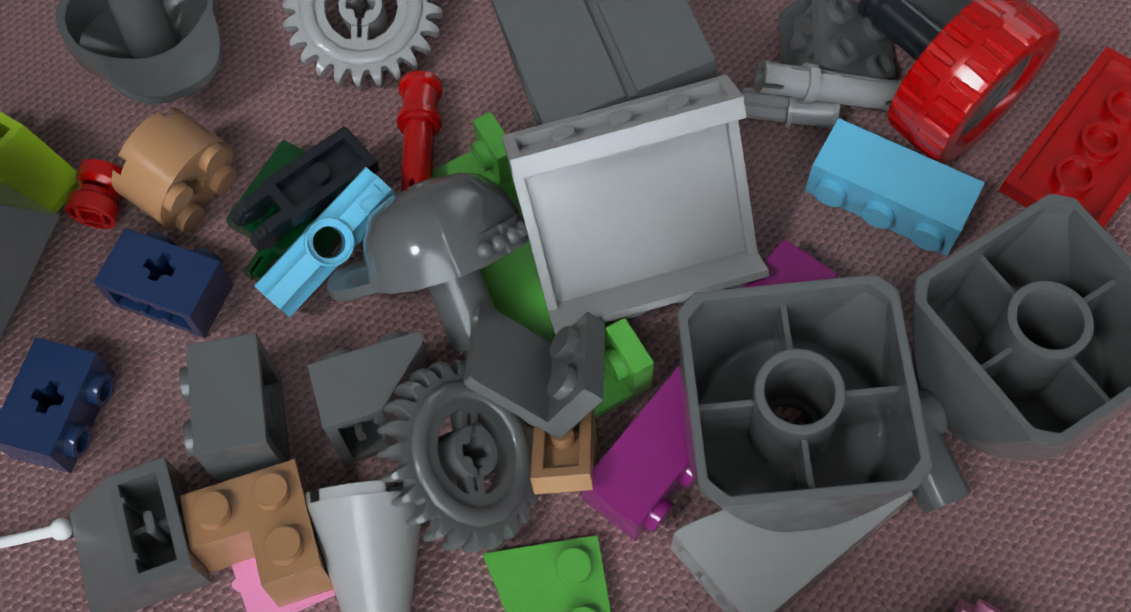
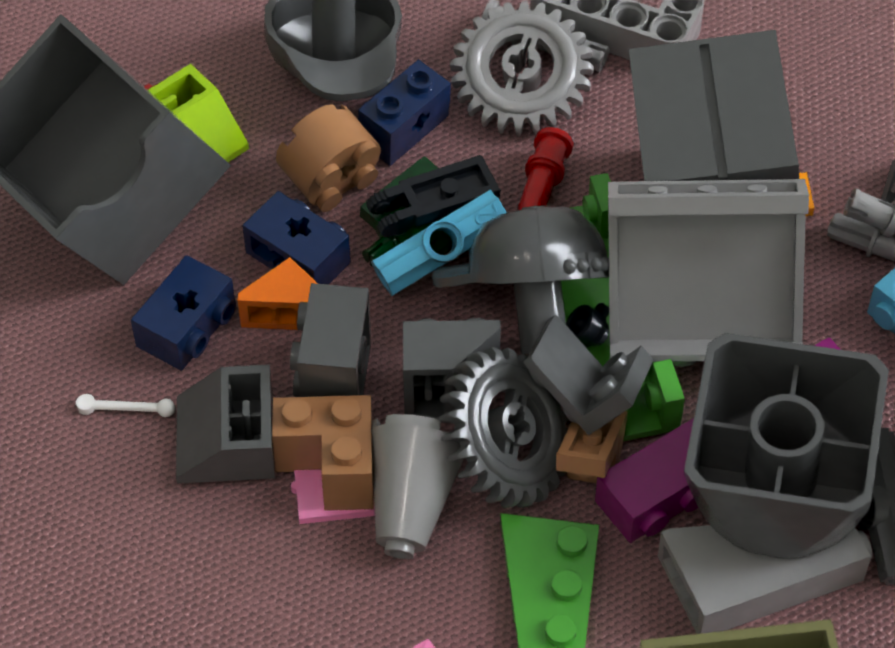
camera: 15 degrees right, 10 degrees down
(95, 199) = (257, 164): red wheel -> none
(154, 356) = (275, 298): none -> orange slope
(247, 93) = (406, 110): none -> dark blue brick
(519, 296) = (589, 324): none -> black plate

